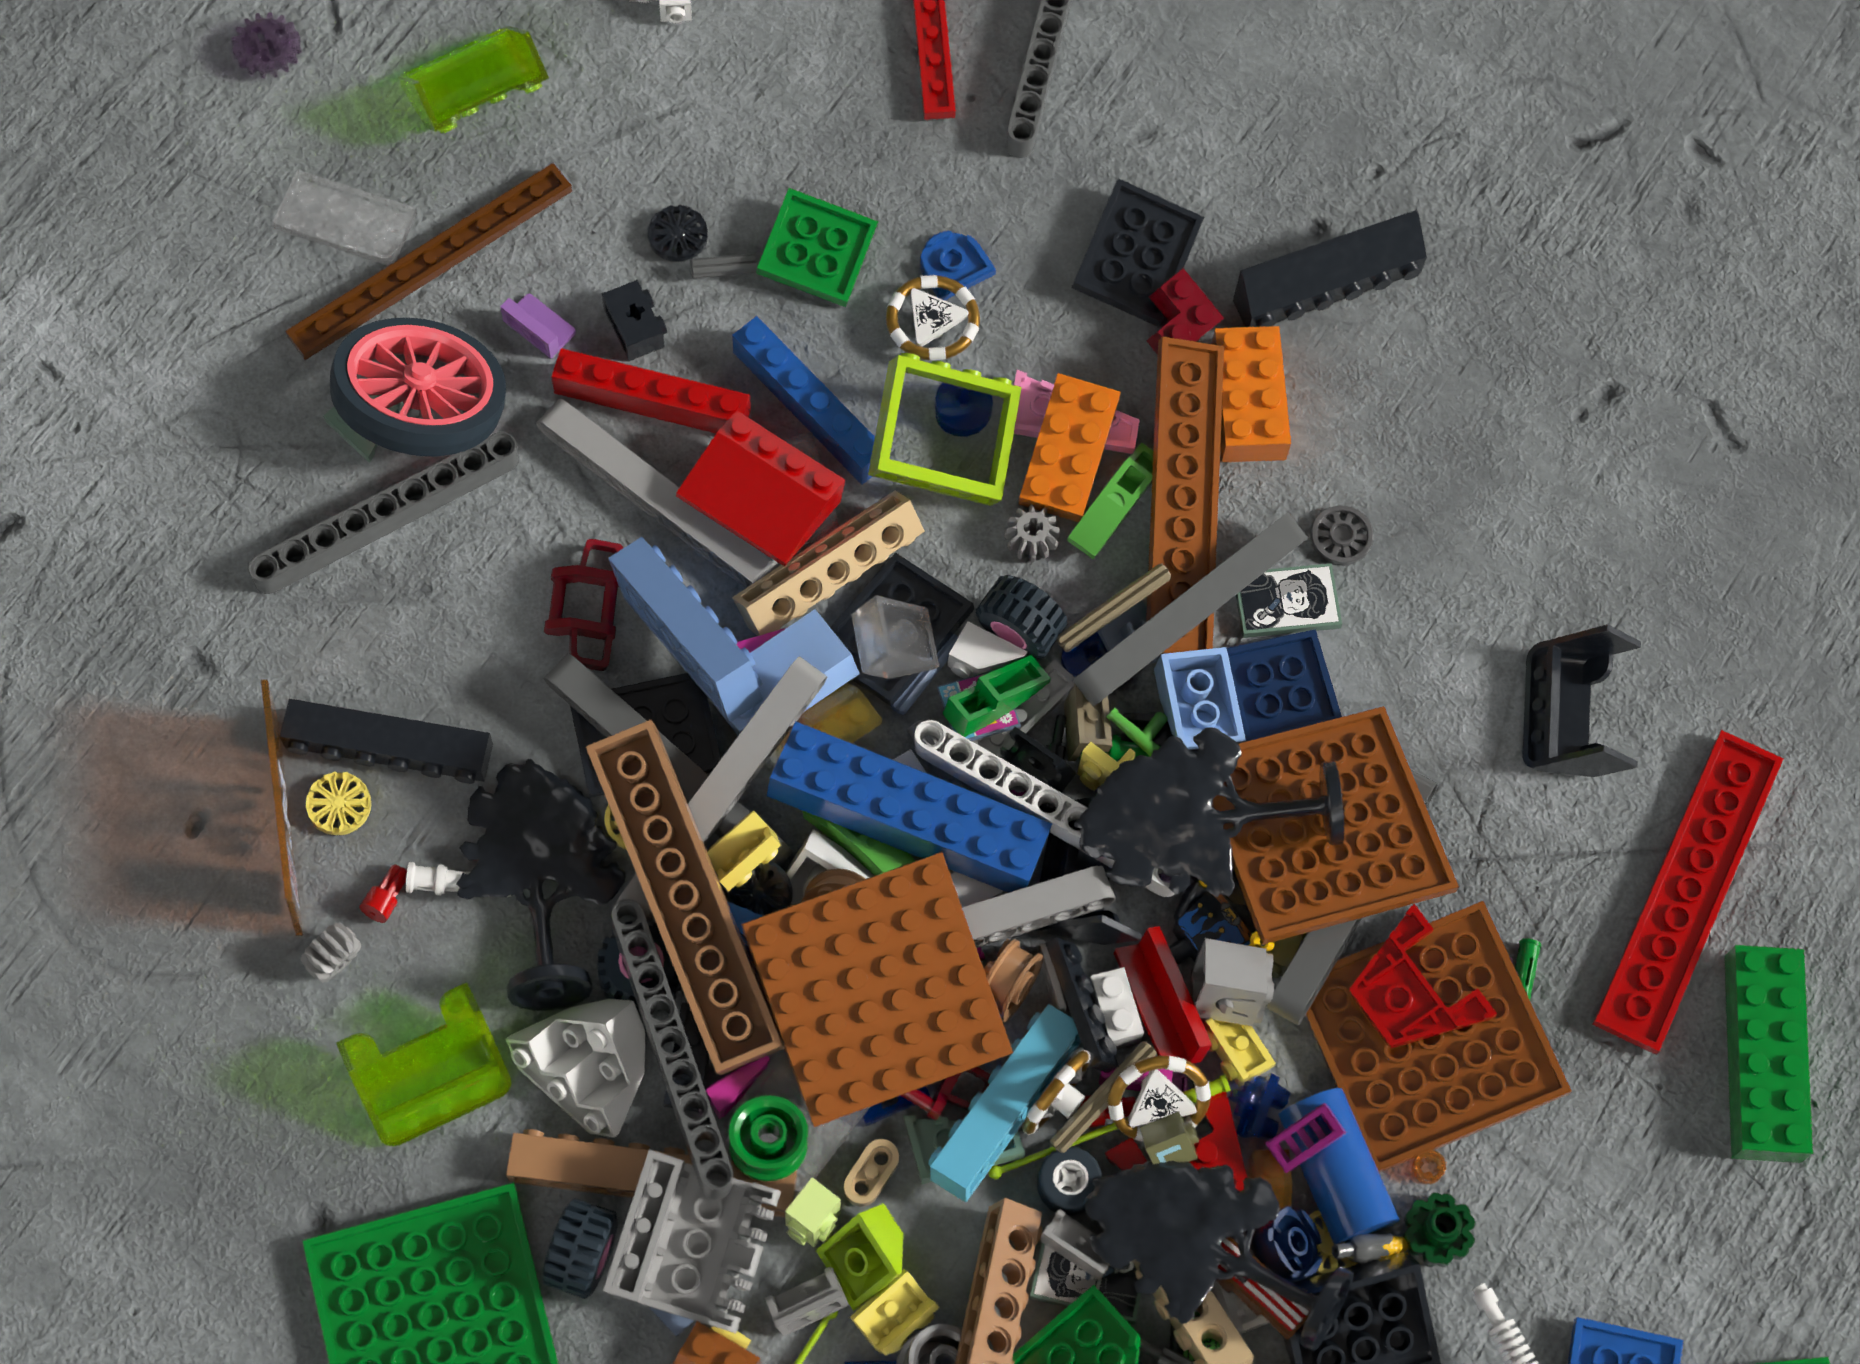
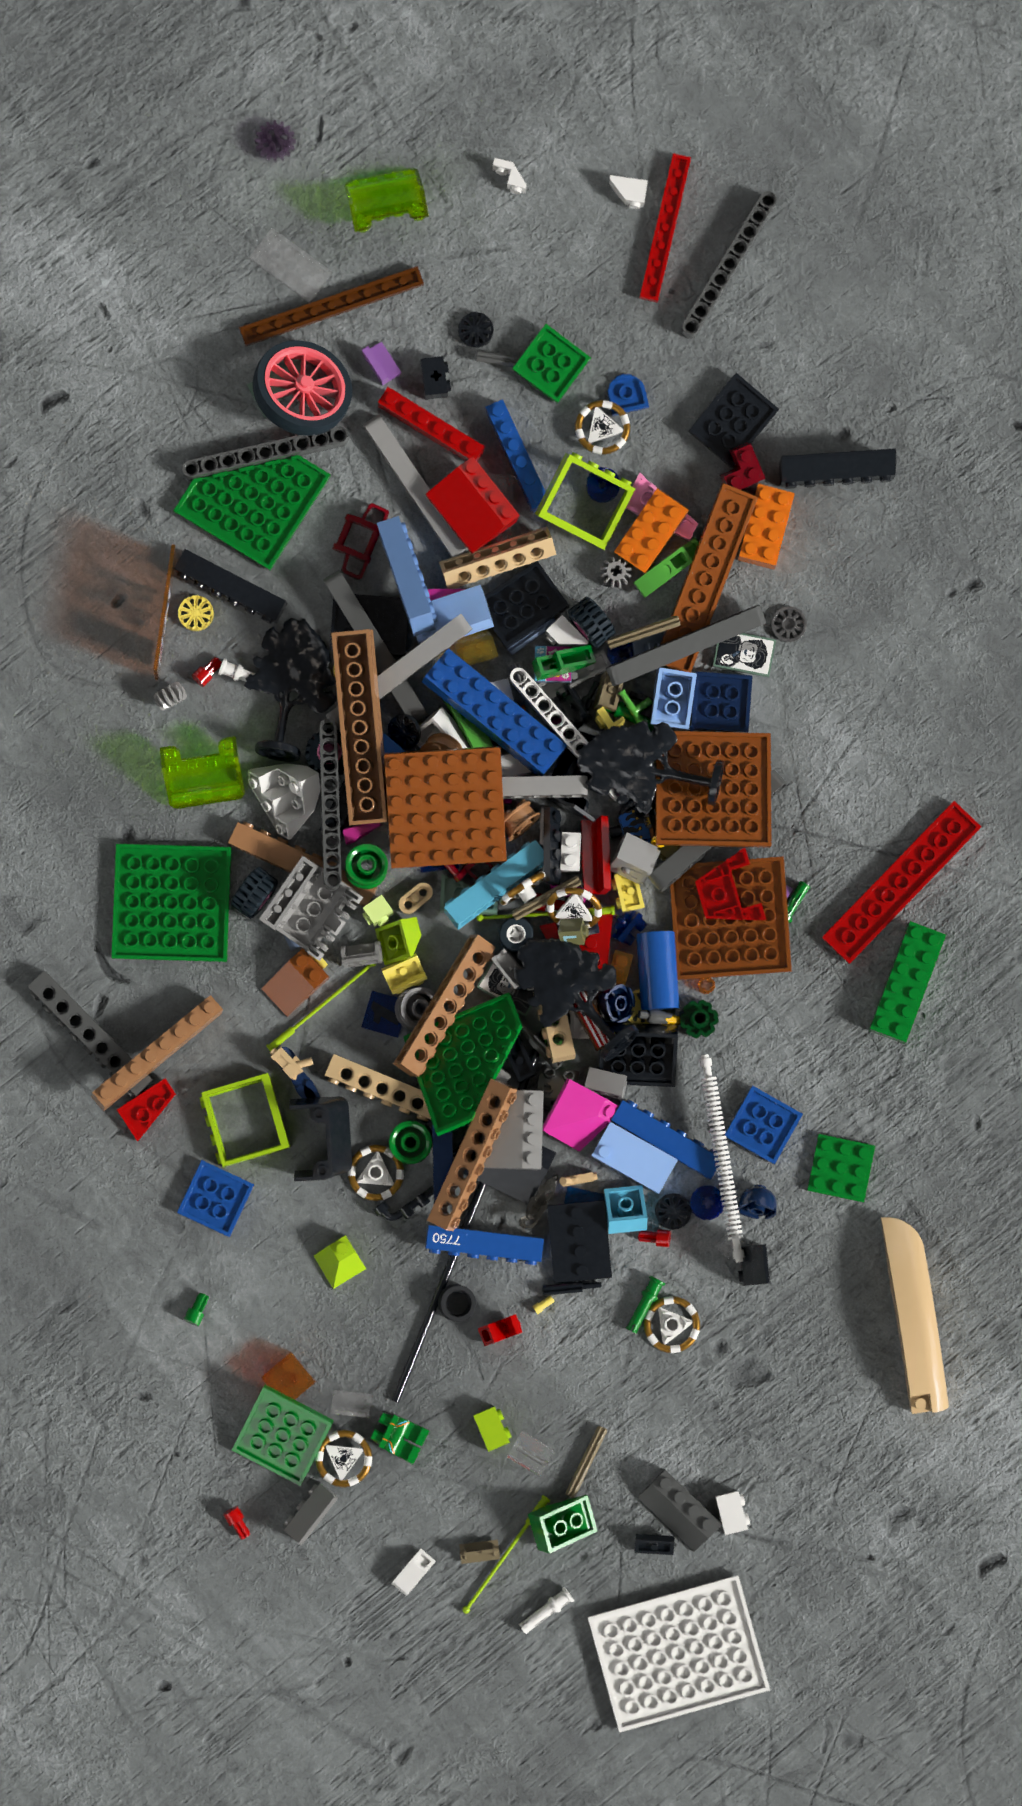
camera: 20 degrees right, 15 degrees up
(391, 602) = (255, 505): none -> green plate
(743, 850) = (399, 709): light yellow bracket -> none
(894, 638) = (518, 613): clear slope -> none
(1330, 1119) = (659, 950): magenta slope -> none
(1559, 702) = (871, 760): black windscreen -> none

